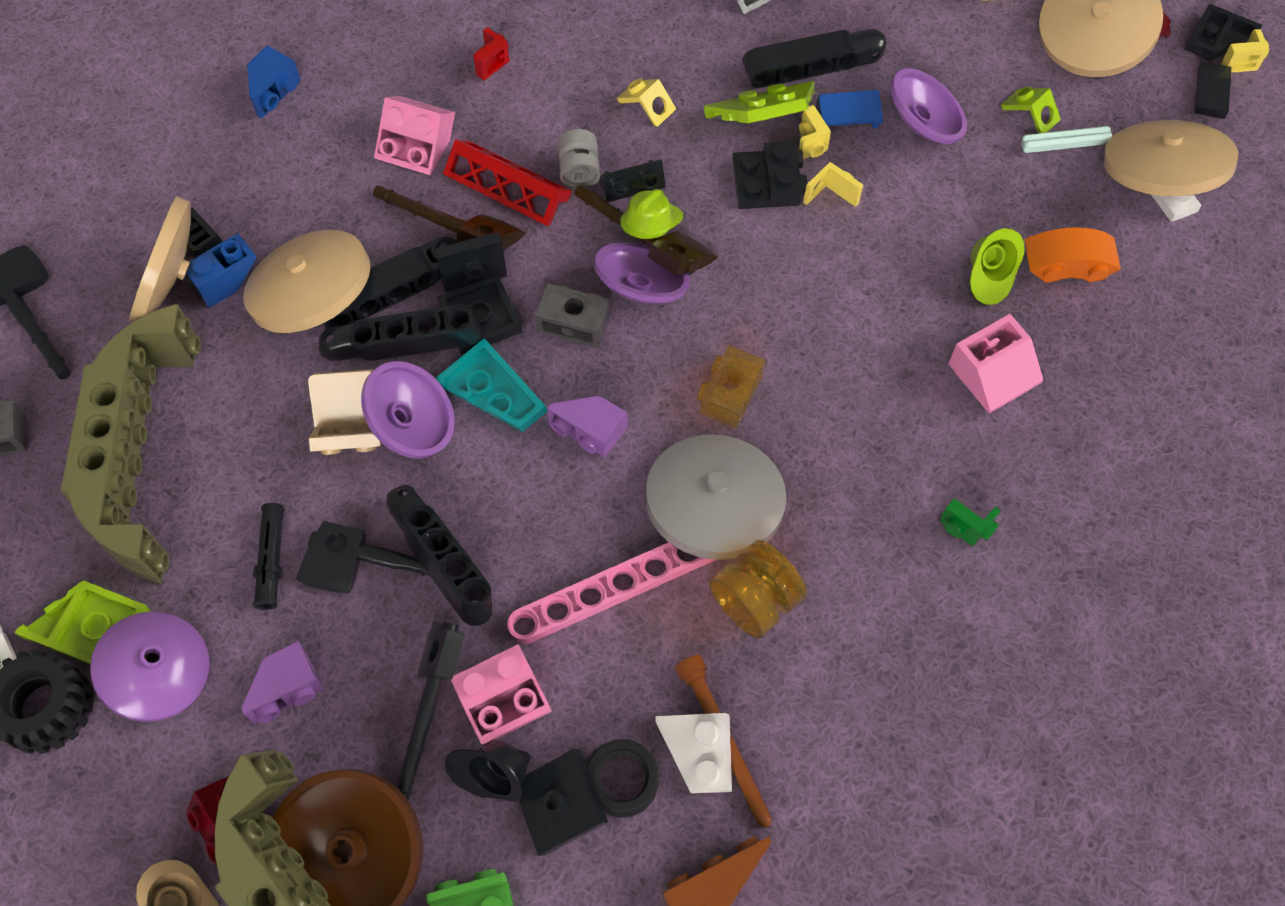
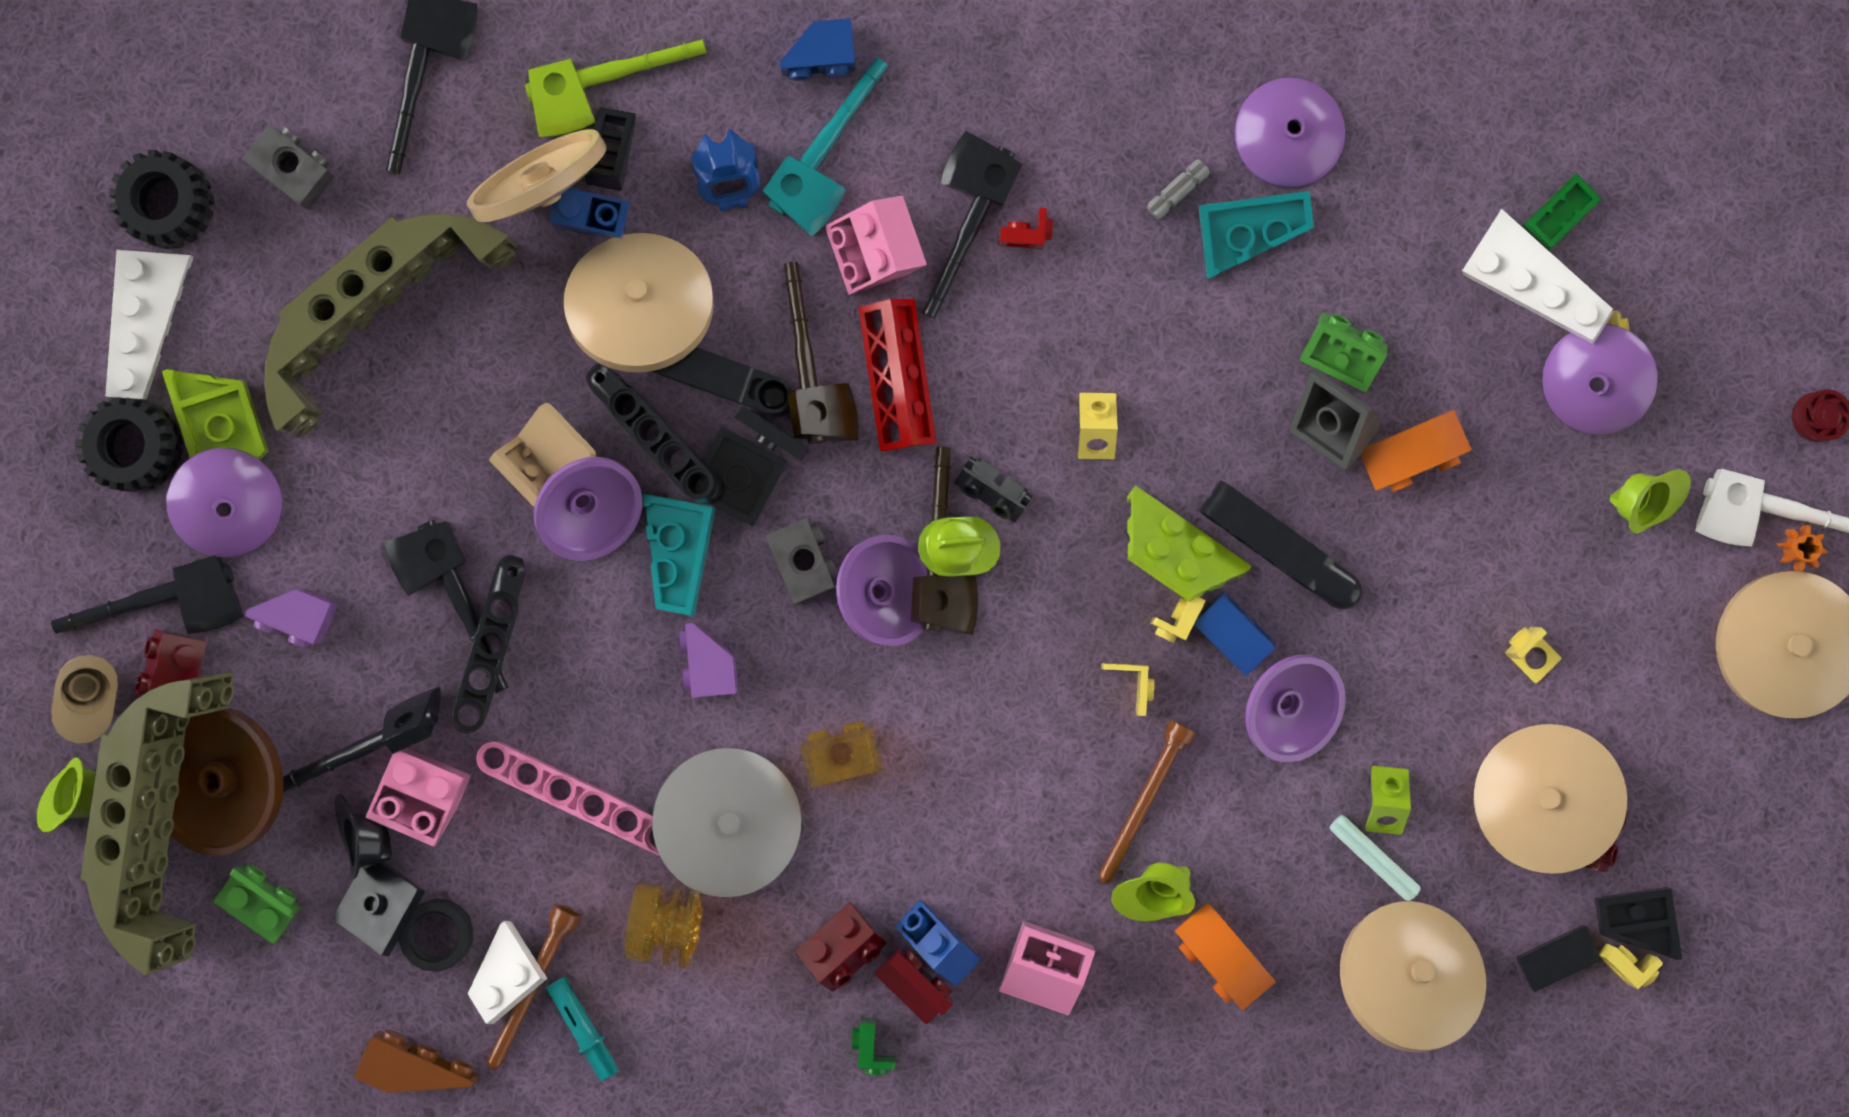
camera: 50 degrees right, 25 degrees up
(134, 238) = (559, 92): none -> lime piece
(191, 742) = (201, 588): none -> black piece
(267, 569) = (372, 514): black pin -> none
(268, 174) = (726, 162): none -> blue helmet
(335, 152) = (797, 186): none -> teal piece
(438, 54) = (988, 176): none -> black piece
(578, 158) = (978, 416): light grey wheel -> none
(769, 176) = (1099, 612): black plate -> none
(794, 724) = (582, 1029): none -> teal axle
(874, 489) = (841, 948): none -> dark red bracket
(892, 188) = (1177, 738): none -> dark orange piece
(923, 421) = (938, 943): none -> blue slope
(943, 456) = (914, 986): none -> dark red bracket

